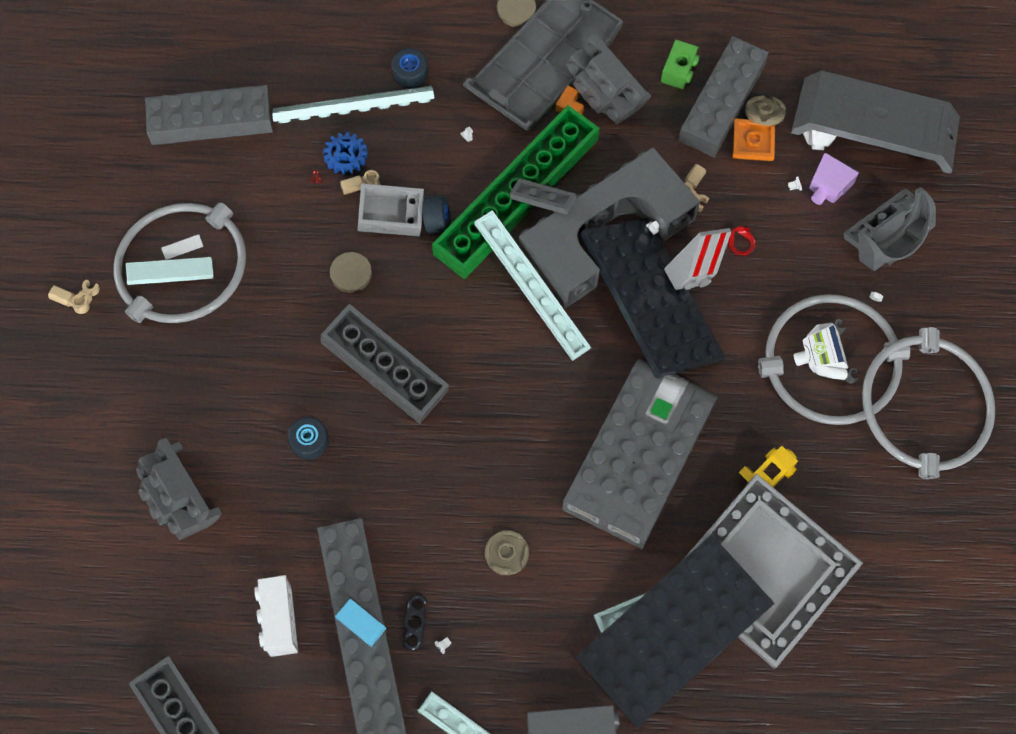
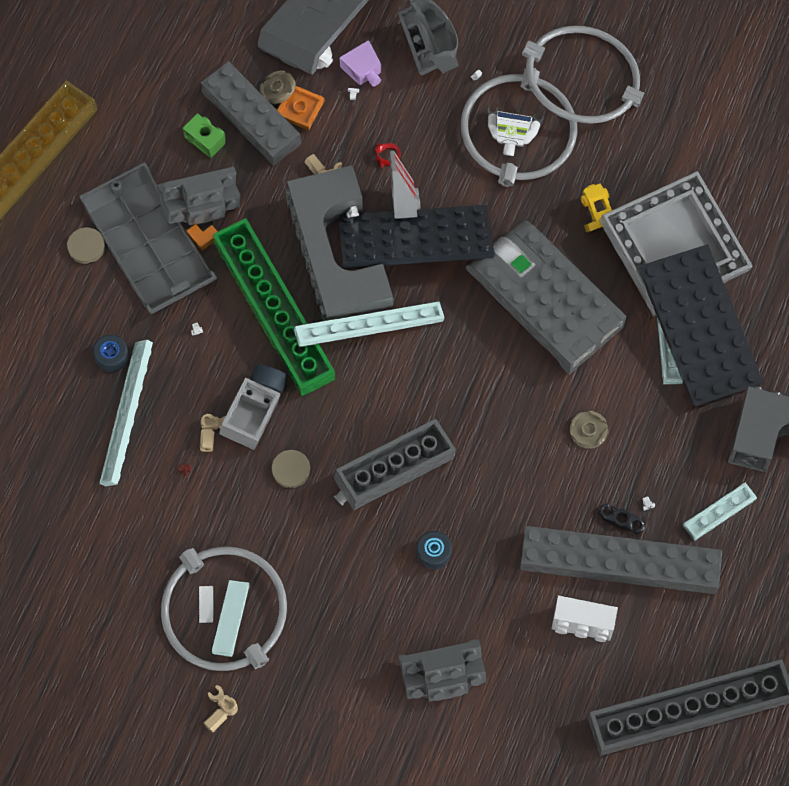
camera: 70 degrees left, 0 degrees up
(208, 115) = (85, 539): dark grey brick -> none
(345, 153) = (182, 432): blue gear -> none
(360, 622) = (616, 551): medium azure tile -> none
(543, 196) = (298, 282): dark grey plate -> none

